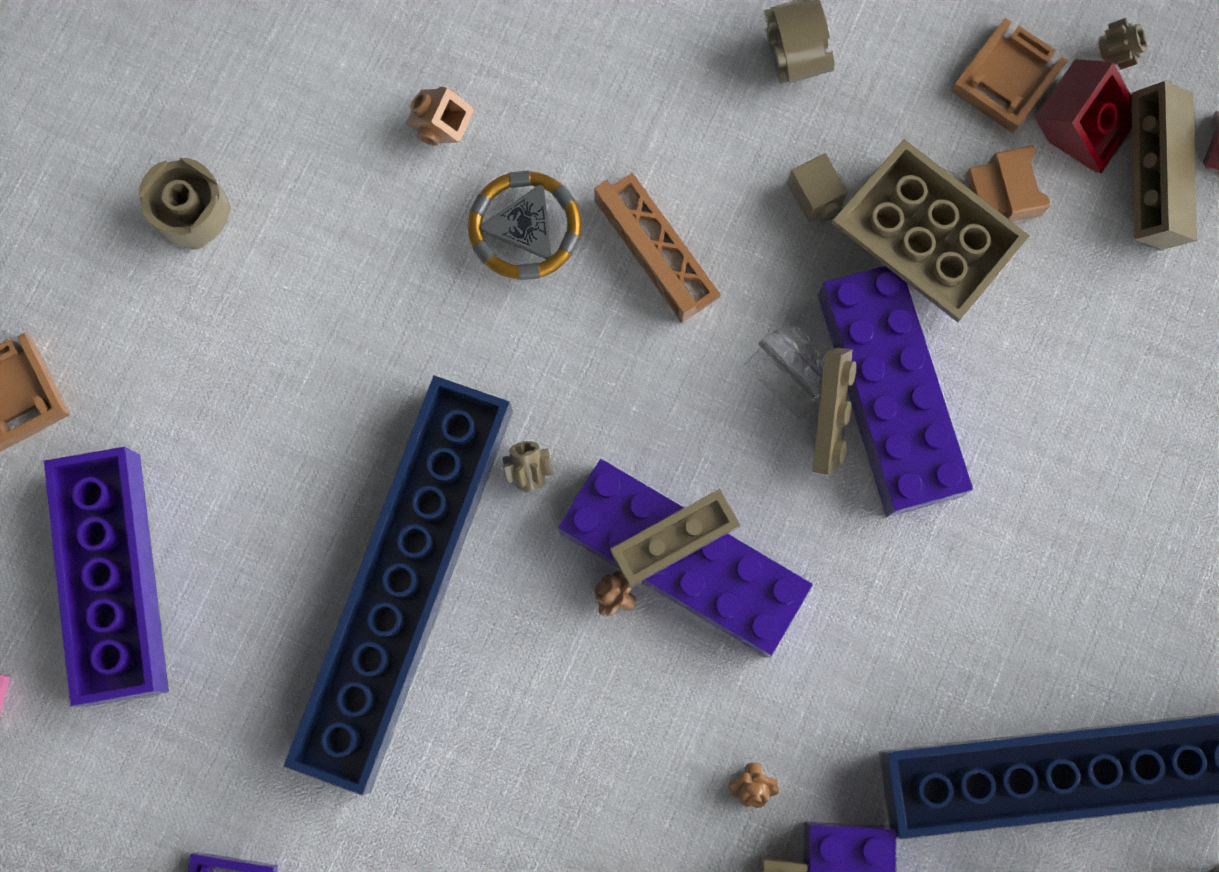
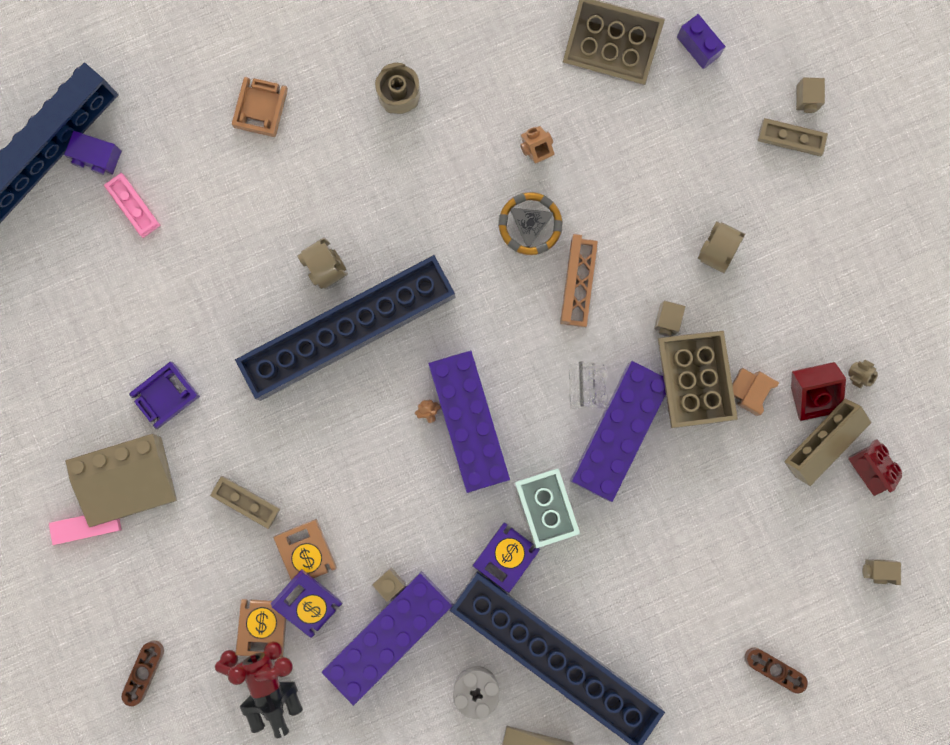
camera: 40 degrees right, 5 degrees up
(105, 577) = (231, 219): dark purple brick -> none
(290, 523) = (323, 264): none -> dark tan brick
(527, 465) = (440, 326): dark tan gear -> none
(675, 537) = (469, 410): dark tan plate -> none
(753, 787) = (412, 538): medium nougat plant -> none
(833, 410) = (585, 417): dark tan plate -> none
(895, 578) = (547, 508): none -> light aqua brick
(901, 688) = (509, 554): none -> dark purple container
(1011, 71) = (803, 341): medium nougat container -> none

